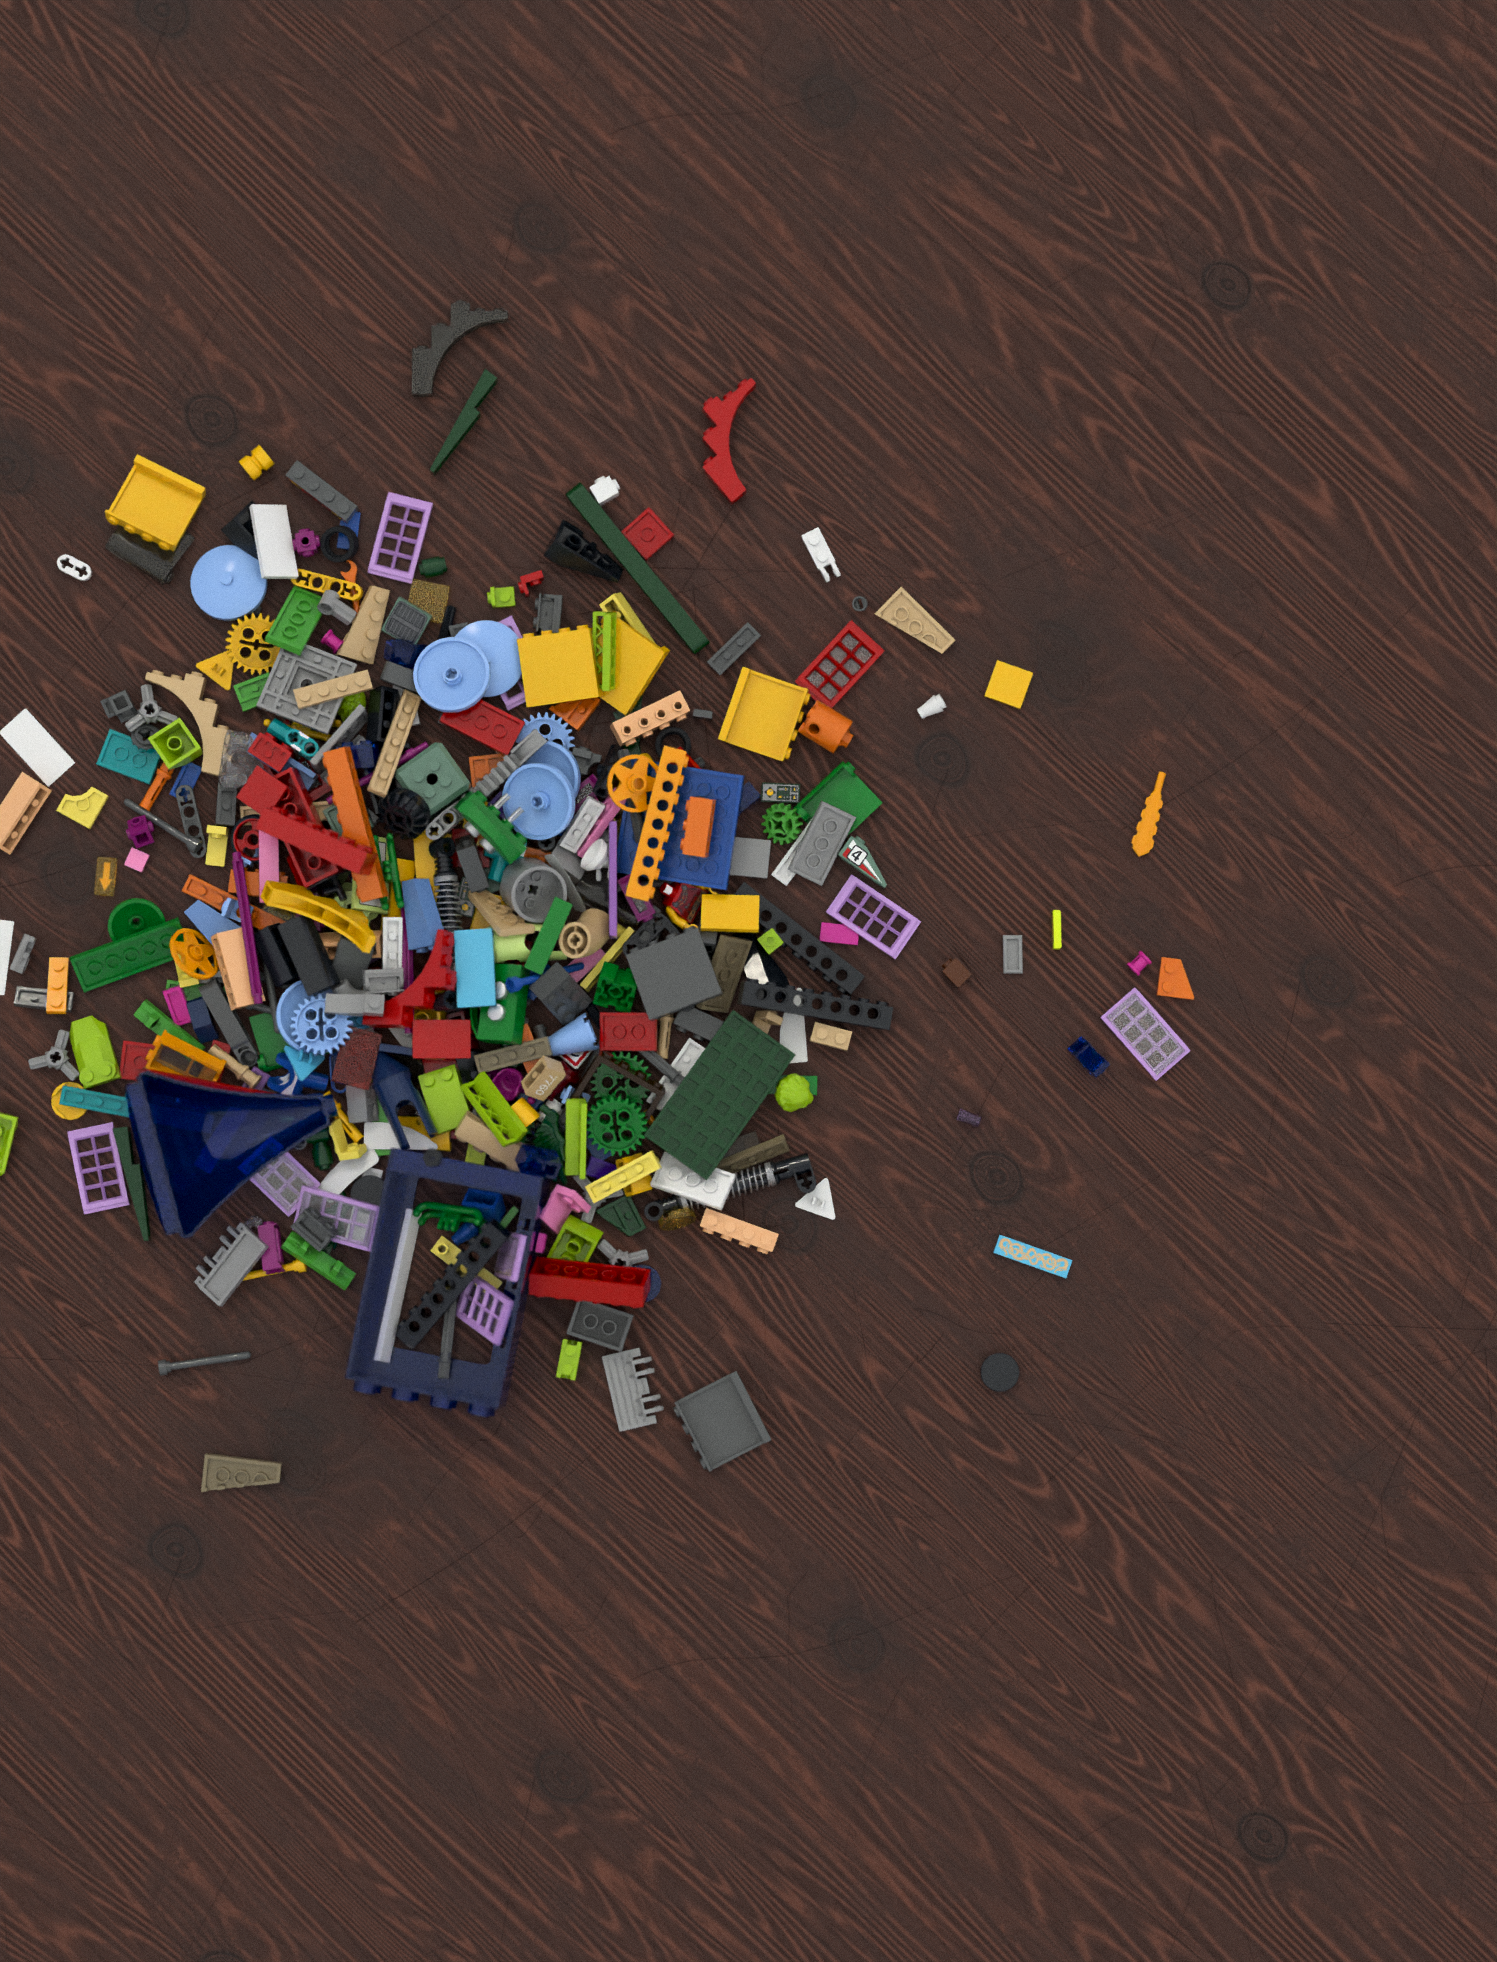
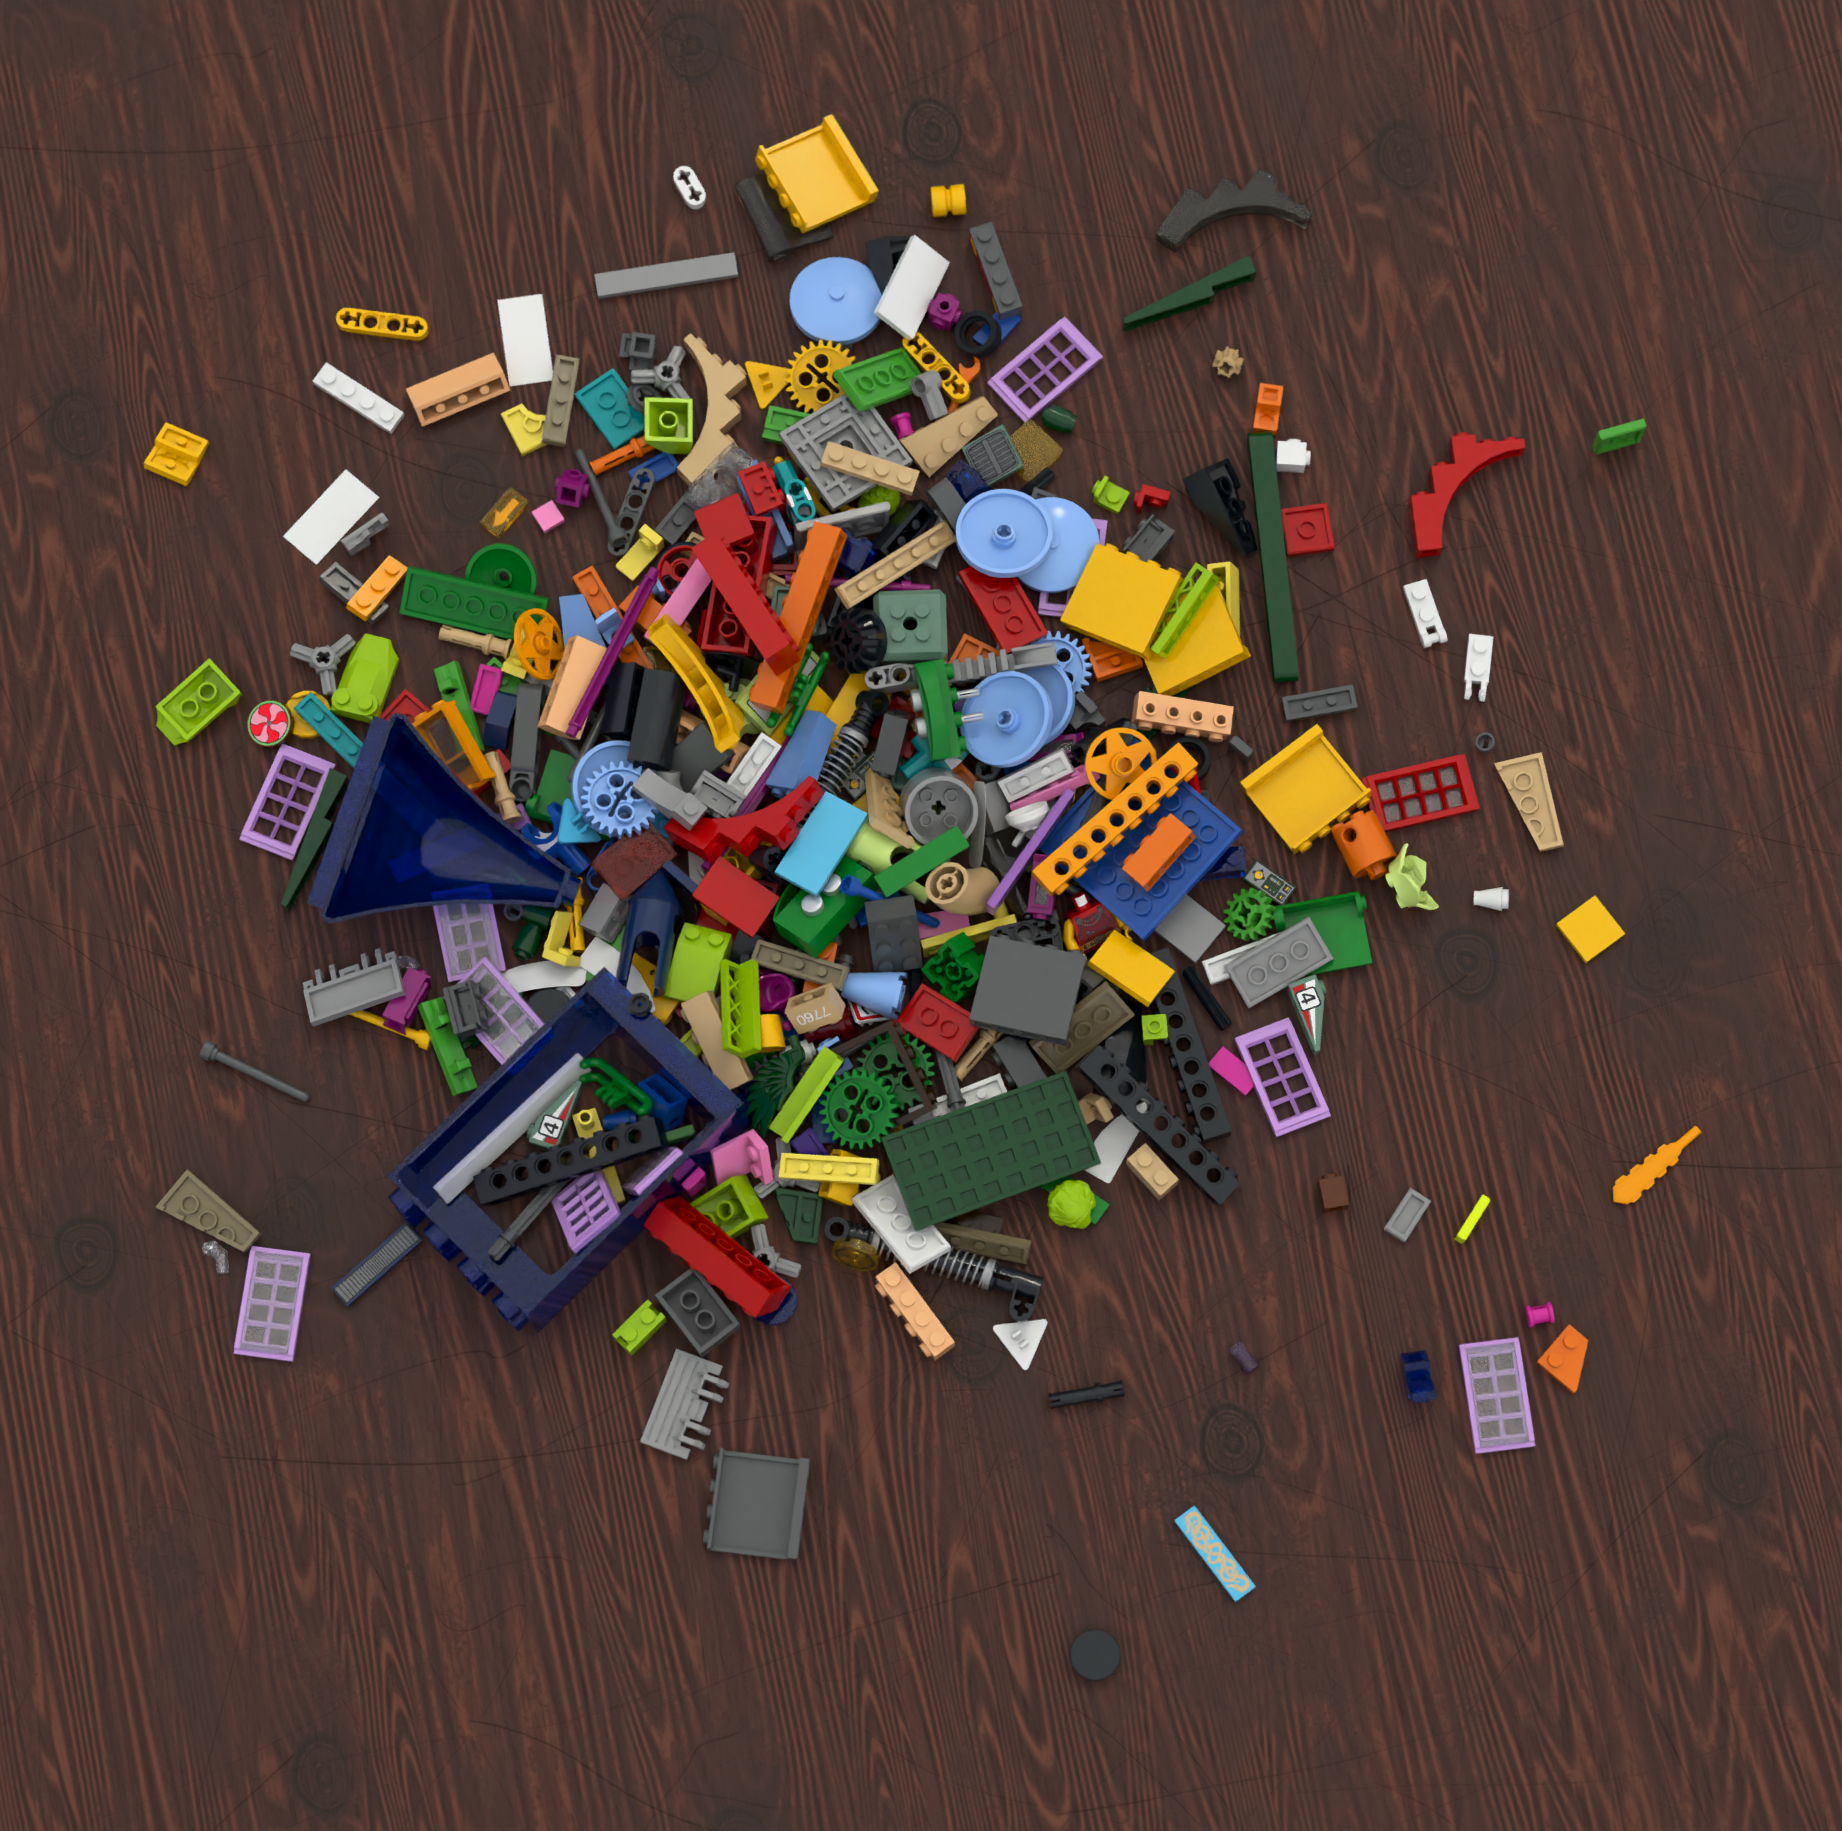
camera: 35 degrees right, 10 degrees down
(50, 1124) = (270, 723): none -> tile
(90, 775) = (560, 400): none -> dark tan tile
(101, 640) = (666, 275): none -> light grey tile
(157, 974) = (488, 643): none -> tan pin
(263, 1493) = (219, 1253): none -> clear arm
(320, 1502) = (272, 1303): none -> clear piece
(370, 1432) = (377, 1264): none -> tile
(422, 1265) = (555, 1120): none -> slope
(519, 452) = (1228, 362): none -> tan gear
(538, 1161) = (750, 1089): clear blue brick -> none
(567, 467) = (1268, 408): none -> orange slope
(762, 540) = (1424, 613): none -> white plate
(790, 896) = (1206, 998): none -> black axle
(813, 334) = (1619, 436): none -> bright green tile
(868, 732) = (1407, 877): none -> yellowish green brick
(884, 1209) = (1086, 1394): none -> black pin

